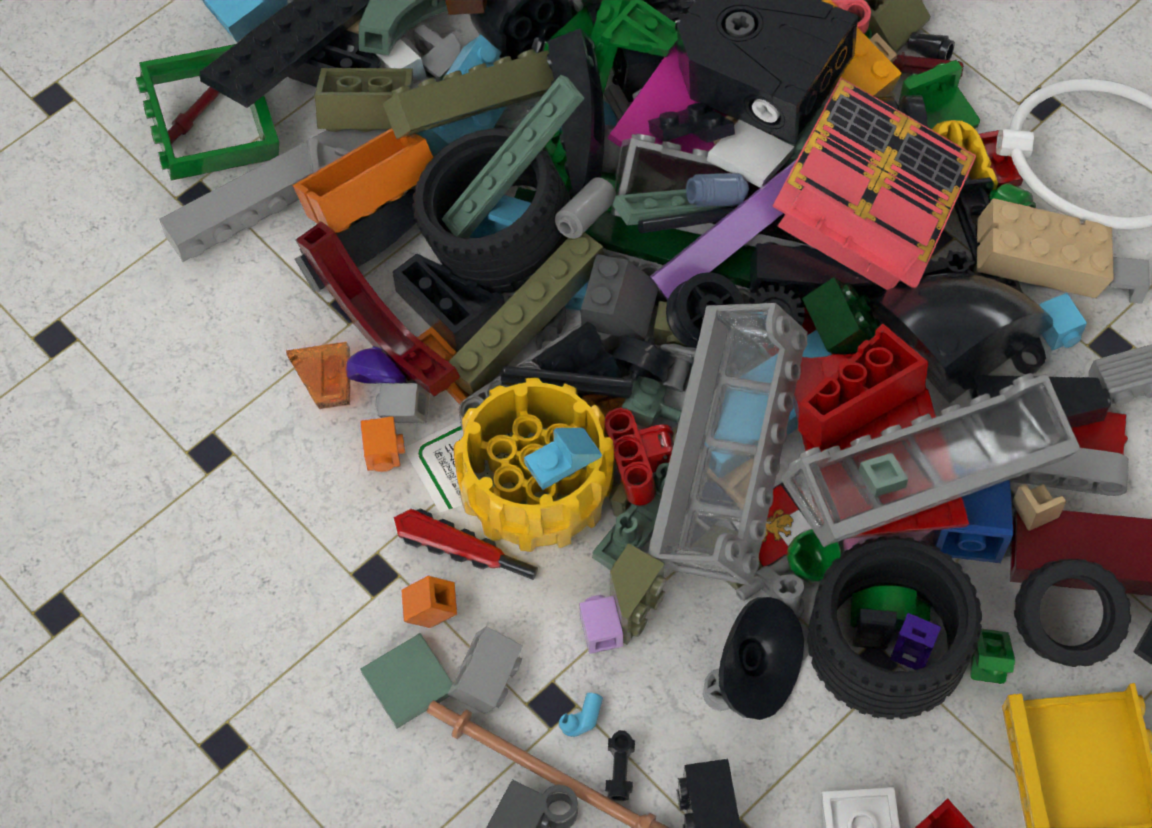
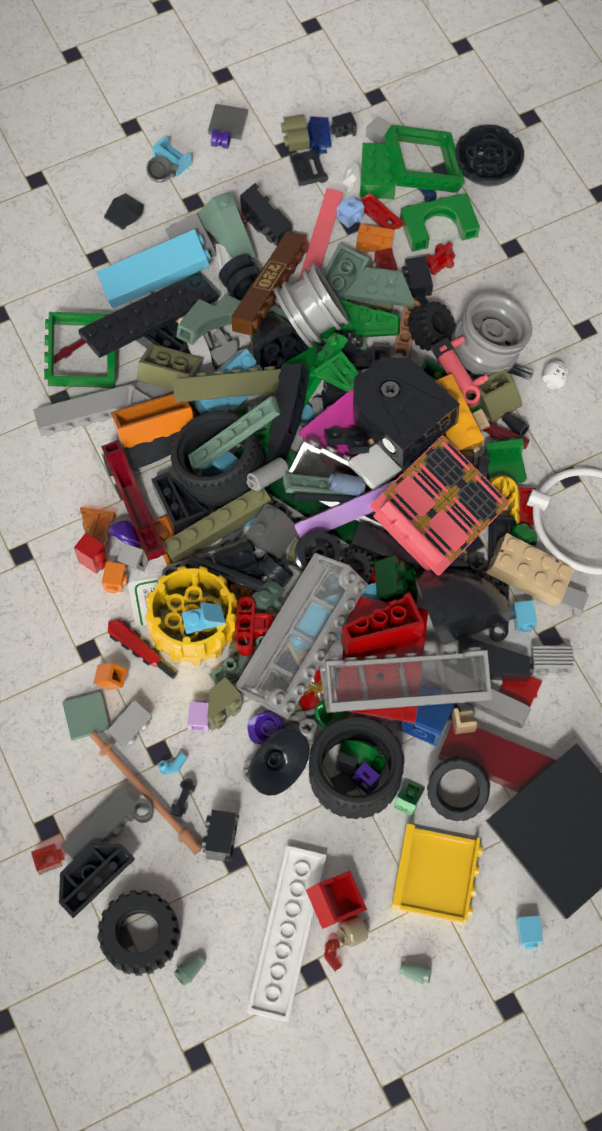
camera: 15 degrees right, 5 degrees up
(331, 415) = (91, 553): none -> red brick
(714, 610) = (263, 726): none -> dark purple hat
(883, 474) = (373, 681): sand green plate -> none

